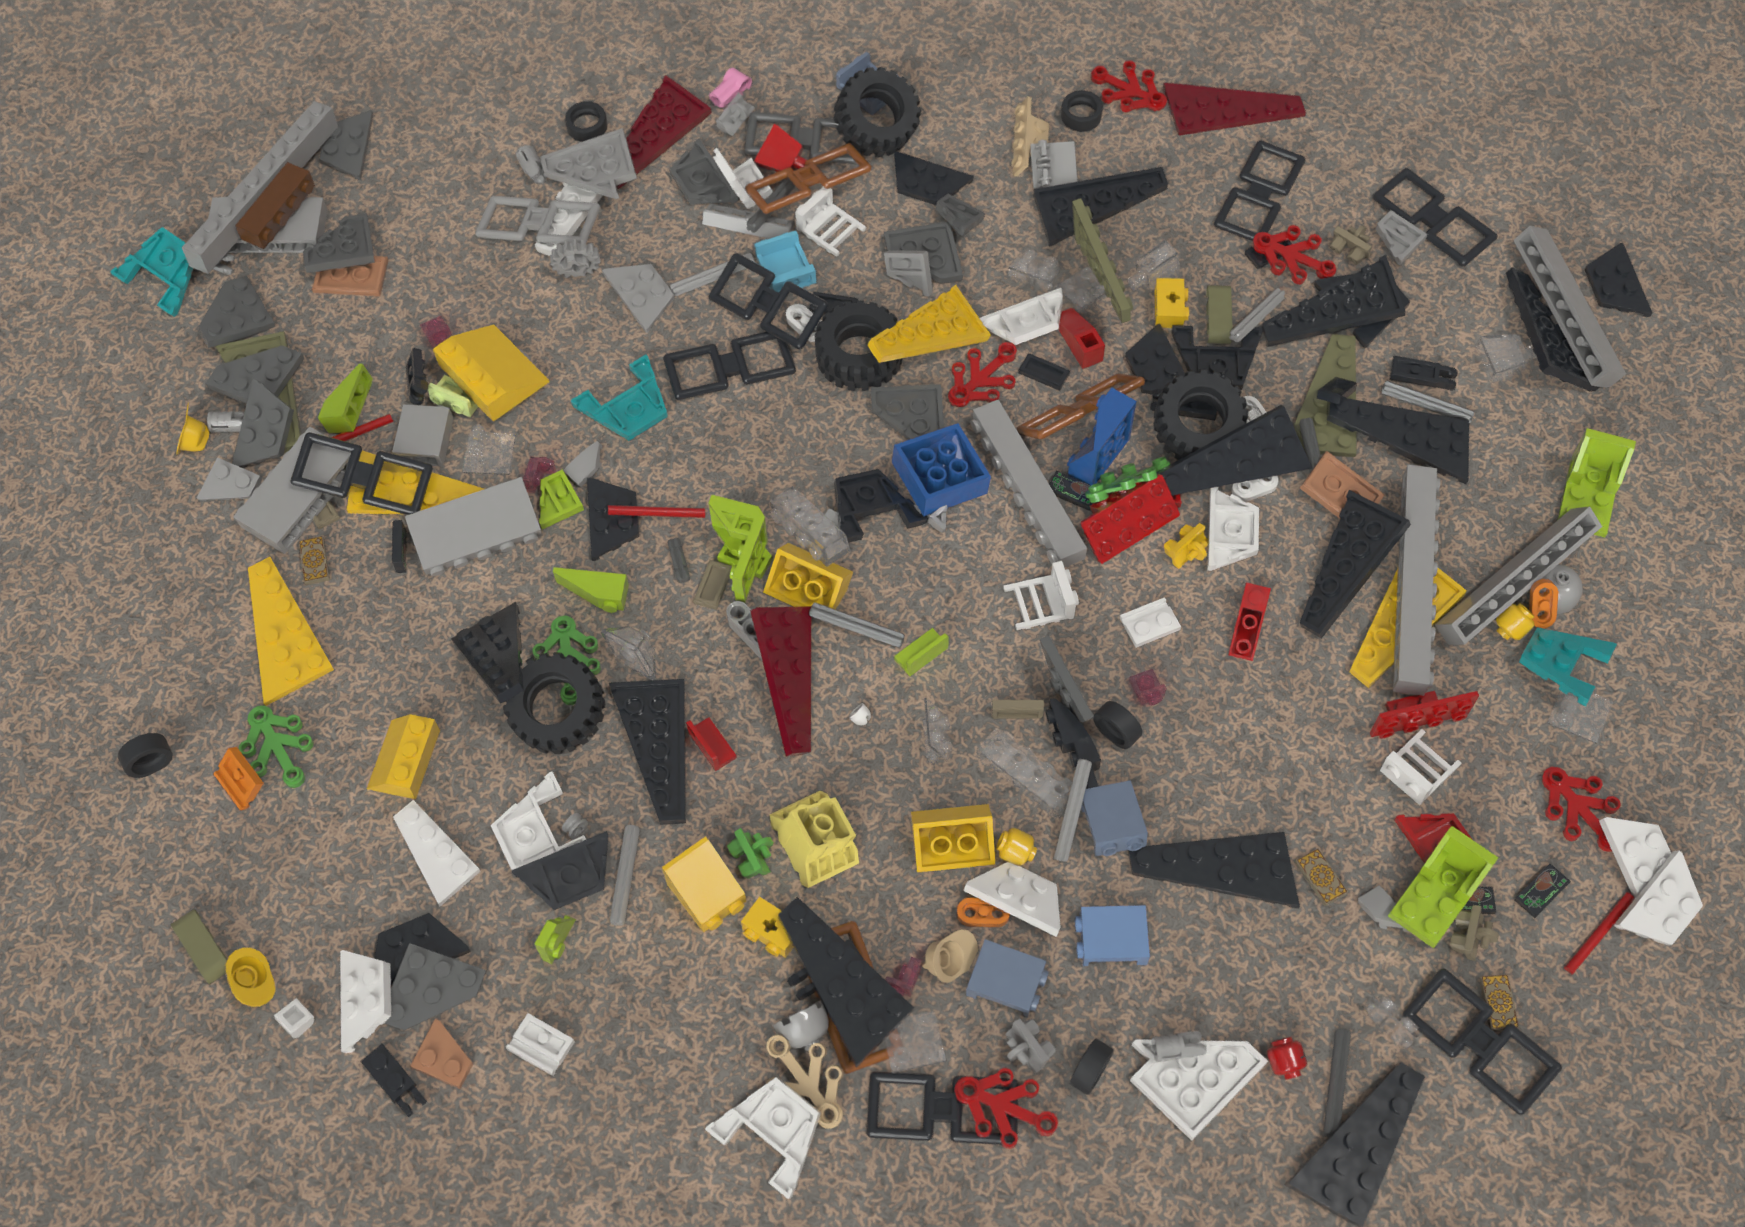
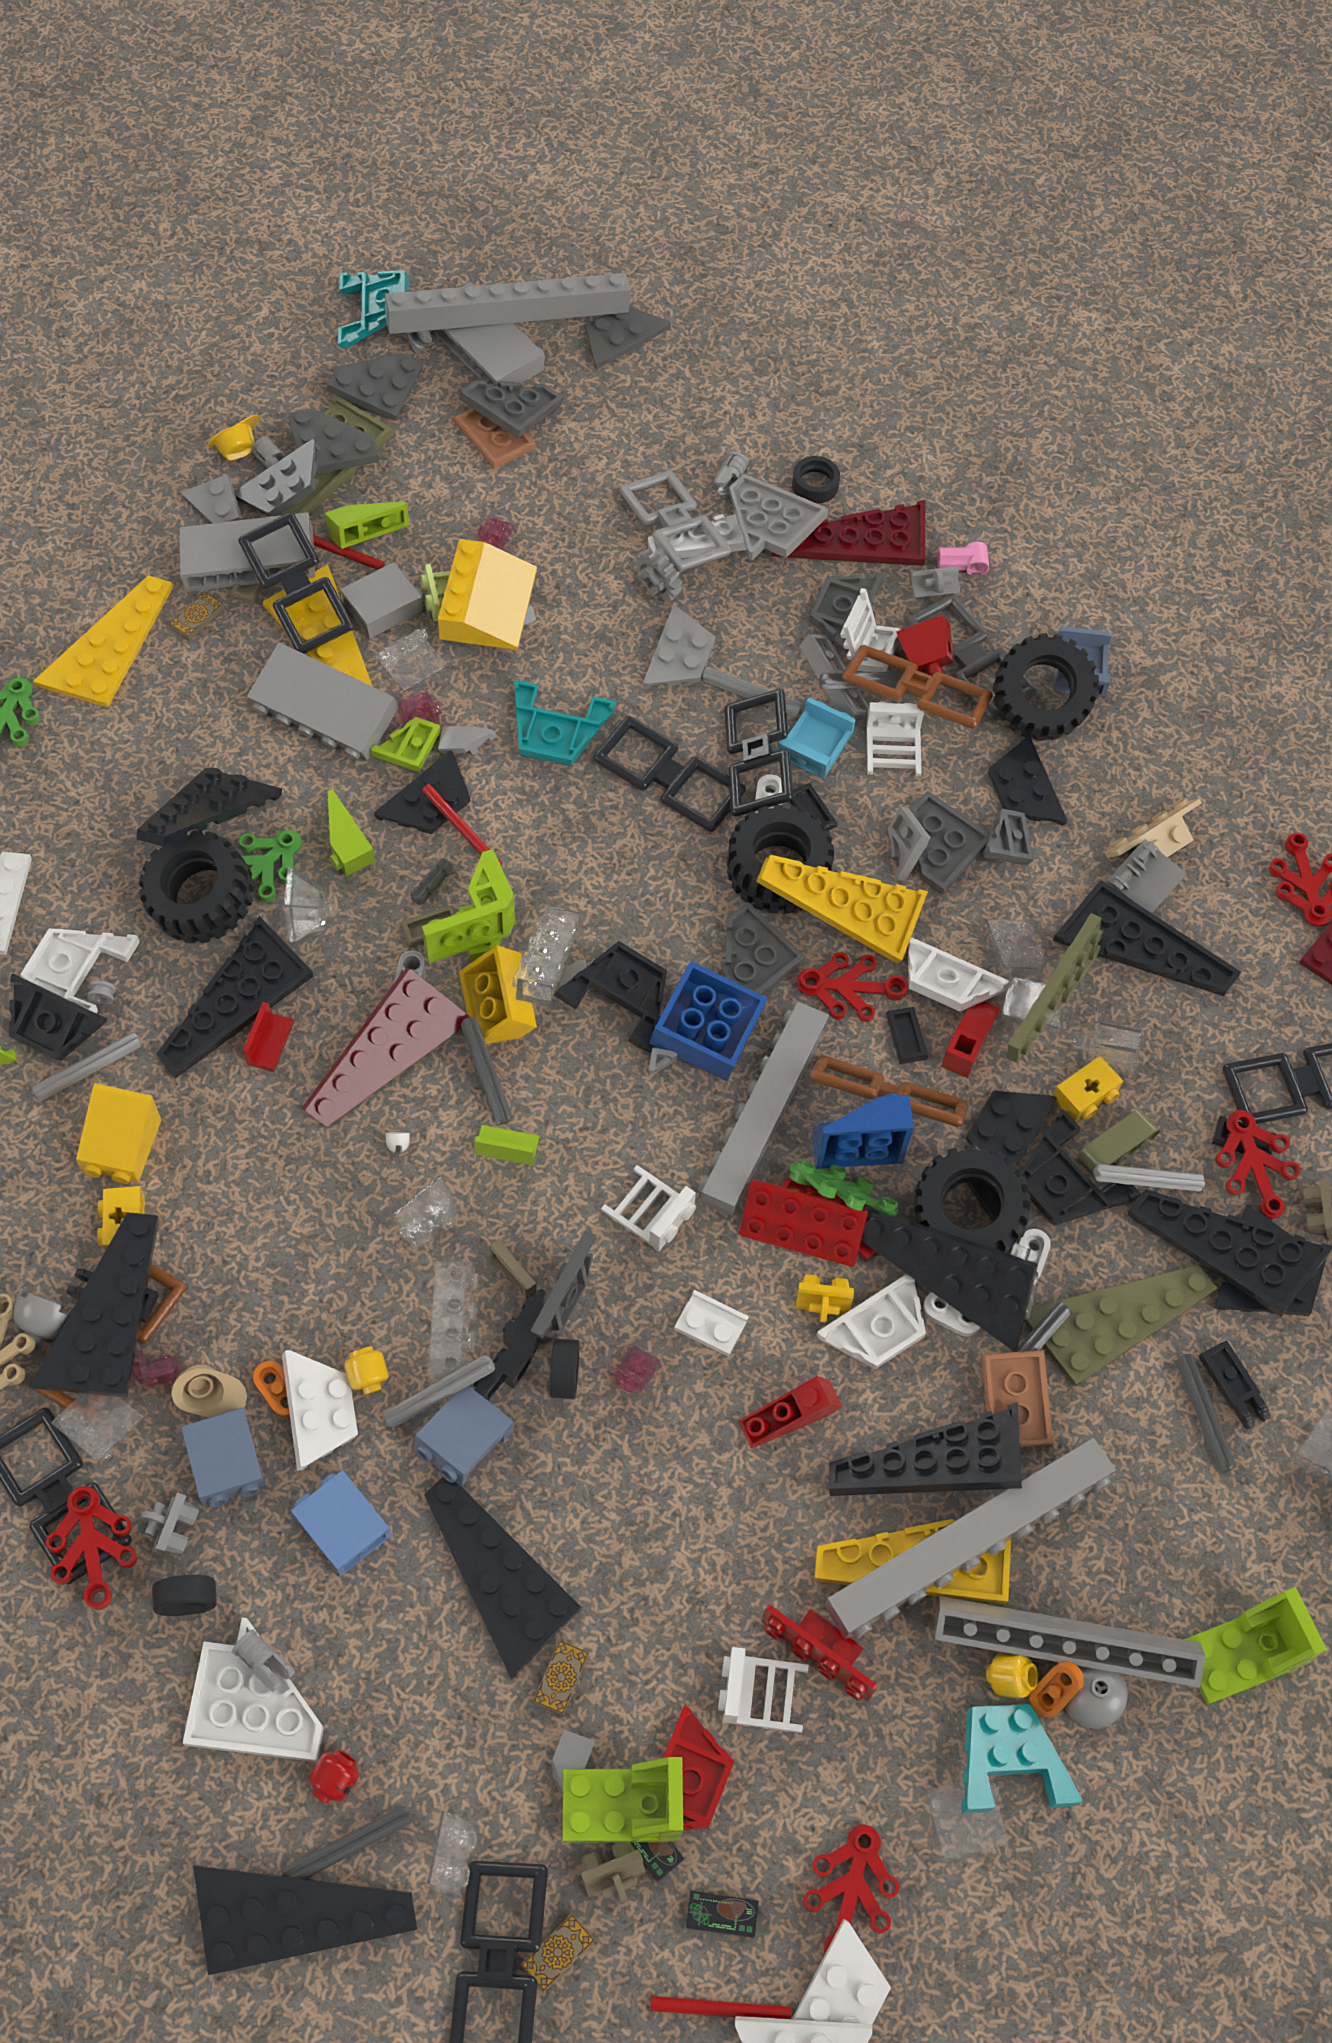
camera: 45 degrees right, 0 degrees up
(275, 205) = (496, 326): reddish brown brick -> none
(399, 546) = (252, 667): black tile -> none
(404, 756) = (65, 820): yellow slope -> none
(416, 378) = (430, 551): black hinge -> none
(746, 845) = (185, 1152): bright green hips -> none
(816, 837) = (240, 1192): light yellow slope -> none
(953, 838) = (332, 1307): yellow slope -> none
(1070, 490) = (794, 1145): black tile -> none
(1077, 123) = (1229, 873): black tyre -> none
(1337, 390) = (1123, 1311): black tile -> none
(1410, 433) = (1151, 1428): black wing -> none

